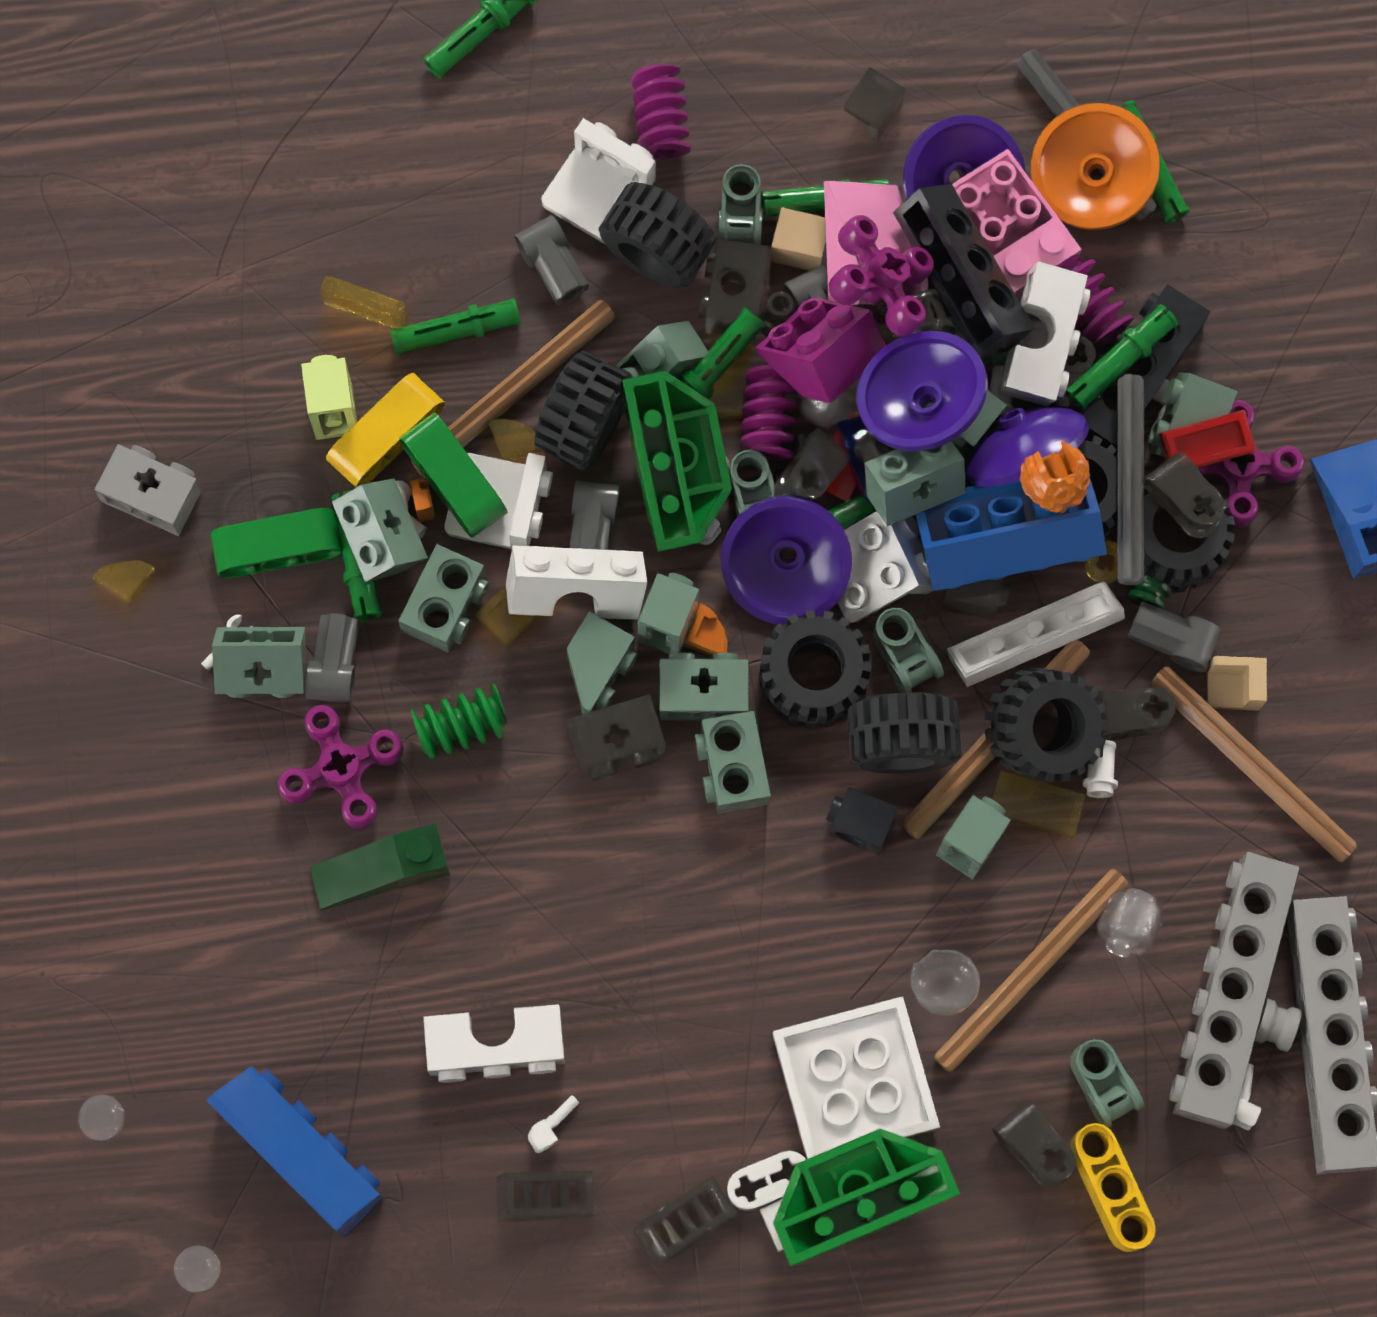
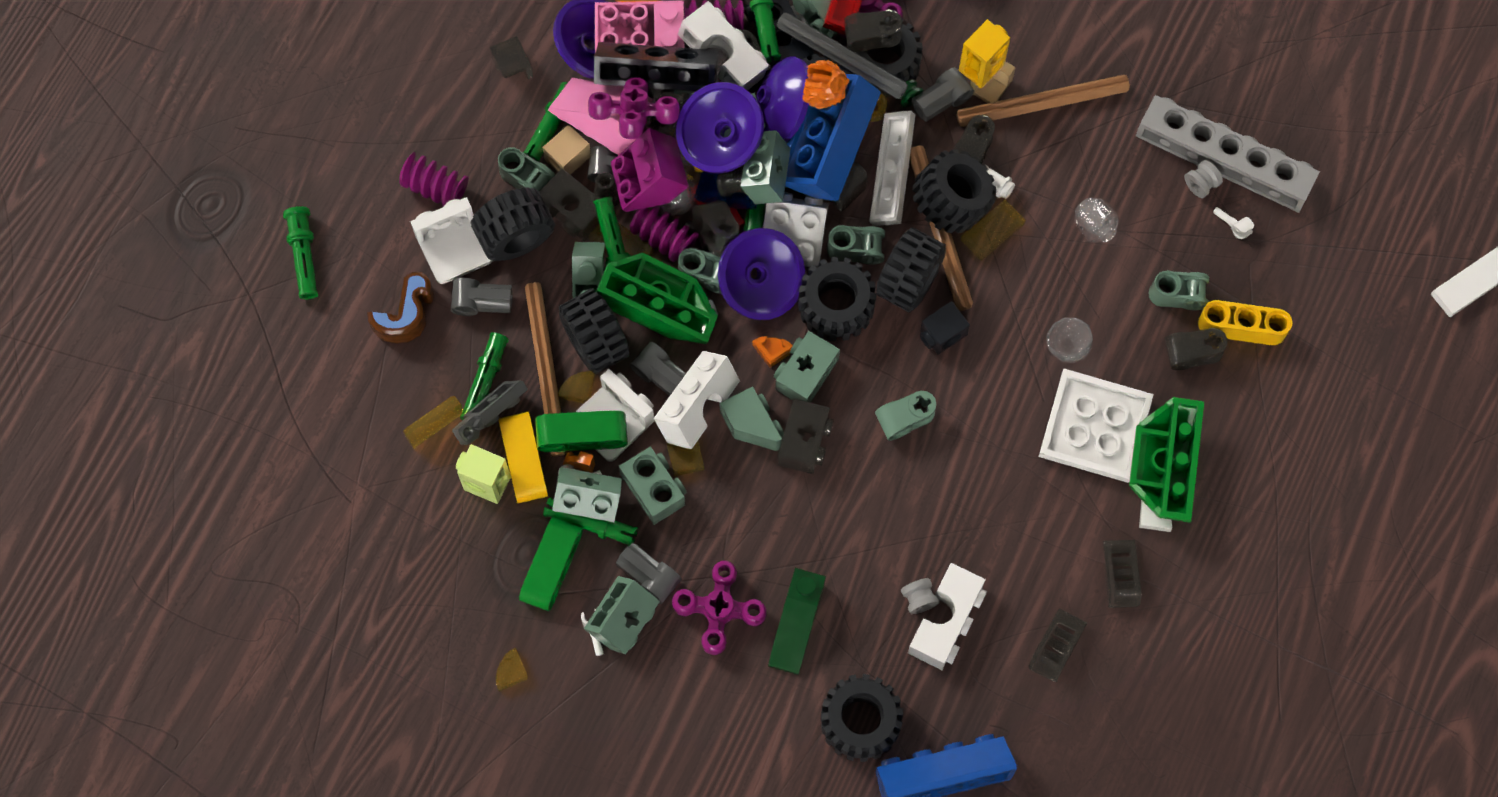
camera: 55 degrees left, 5 degrees down
(162, 507) = (455, 634): light grey brick -> none
(286, 979) = (867, 691): none -> black tyre
(412, 354) = (487, 410): none -> dark grey hinge
(460, 722) = (736, 519): green piece -> none
(481, 194) = (411, 315): none -> reddish brown animal
(500, 993) = (920, 596): none -> light grey wheel
(541, 1133) = (1019, 624): white hand -> none
(668, 613) = (752, 358): sand green brick -> none
(714, 837) = (901, 416): none -> sand green piece
(743, 761) = (867, 371): sand green brick -> none
(759, 1171) = (1118, 510): white beam -> none
(974, 835) = (995, 270): sand green brick -> none
(1029, 971) = (1090, 292): medium nougat axle -> none
(1247, 648) = (984, 53): none -> yellow brick
(1274, 885) = (1167, 172): light grey brick -> none

